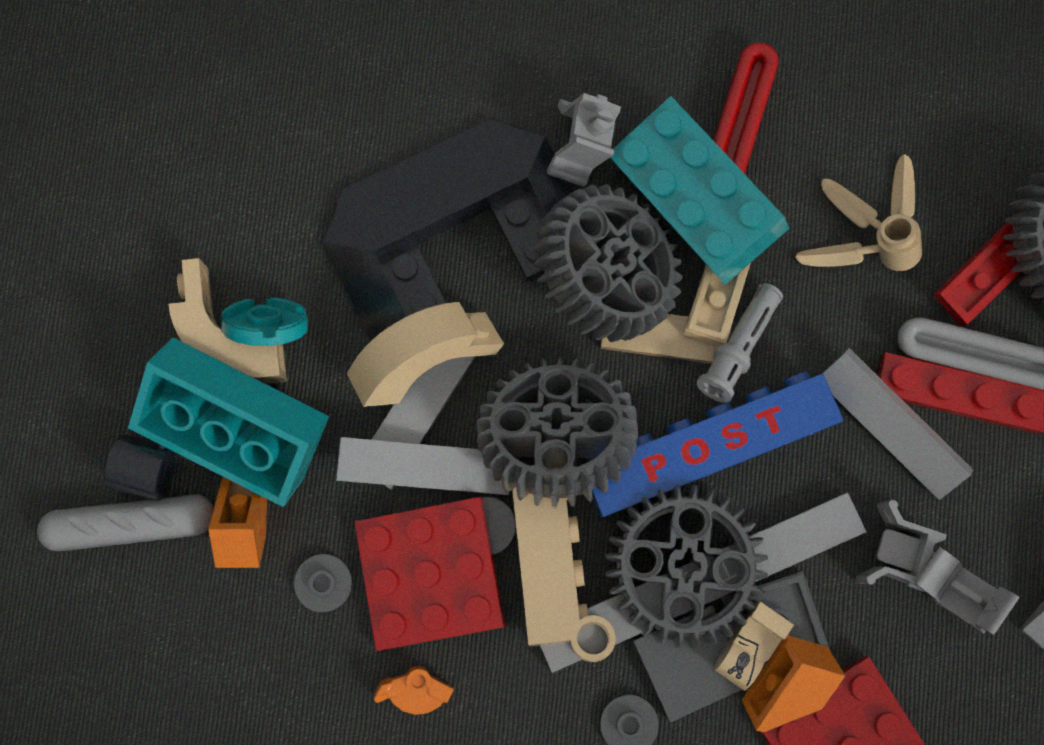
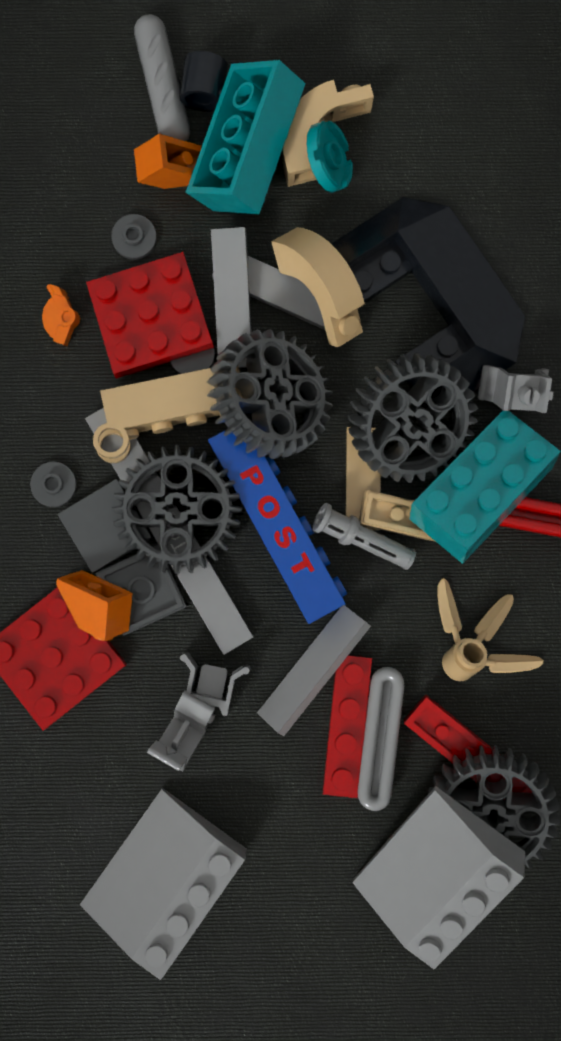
camera: 85 degrees right, 5 degrees up
(752, 645) = (122, 569): tan leg -> none

